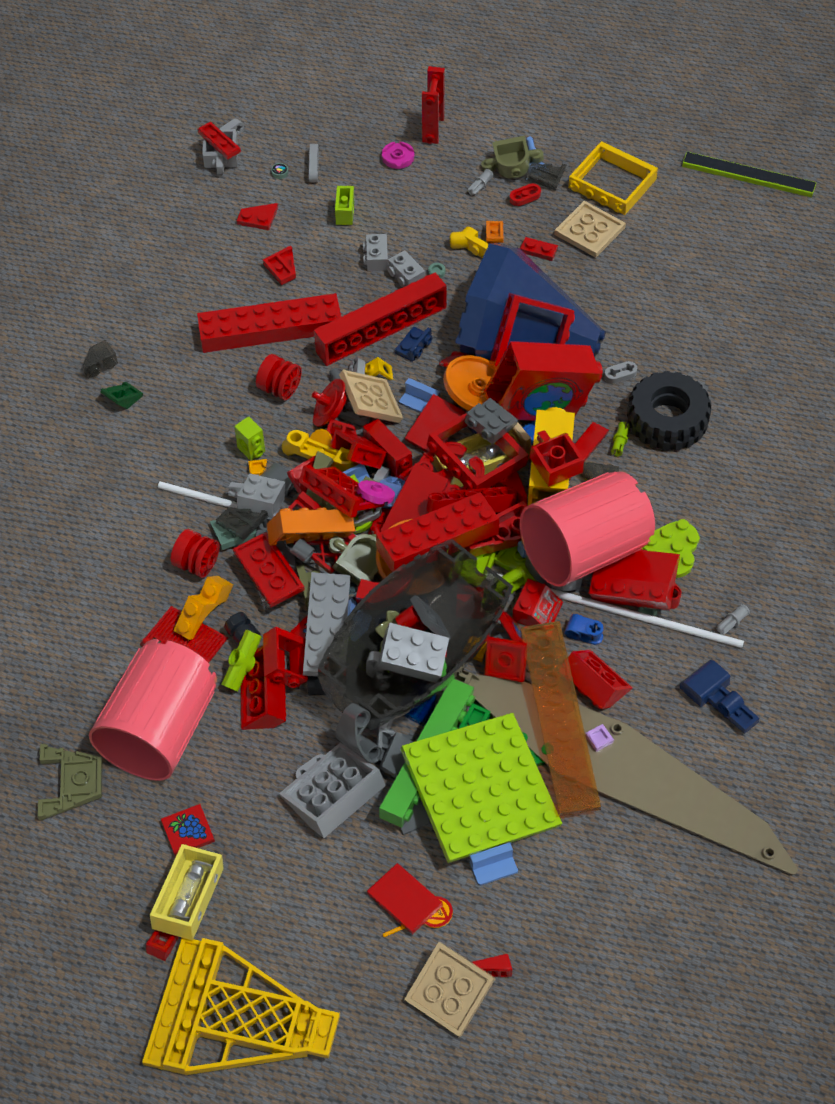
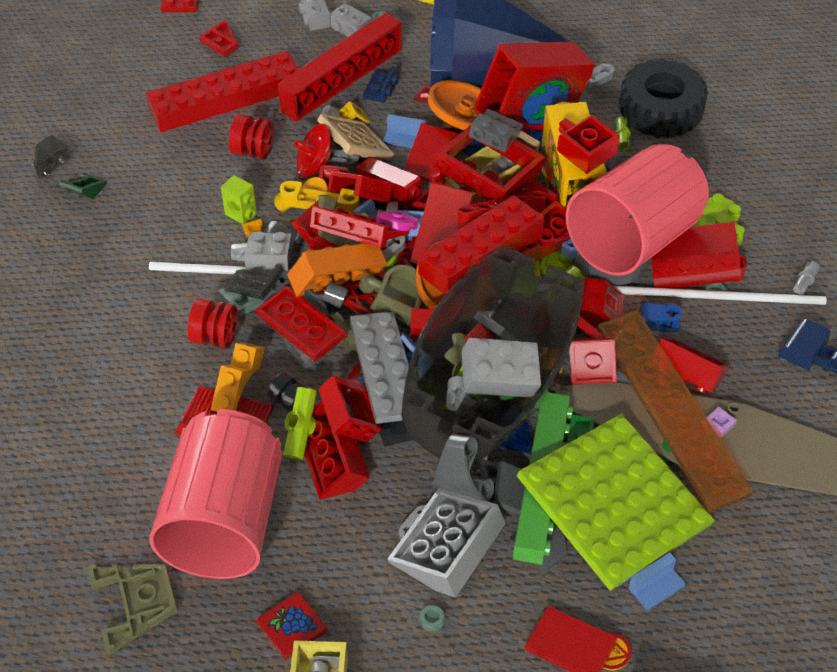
camera: 15 degrees left, 5 degrees down
(301, 850) = (432, 618): none -> sand green tile
(509, 317) = (480, 37): red window -> none

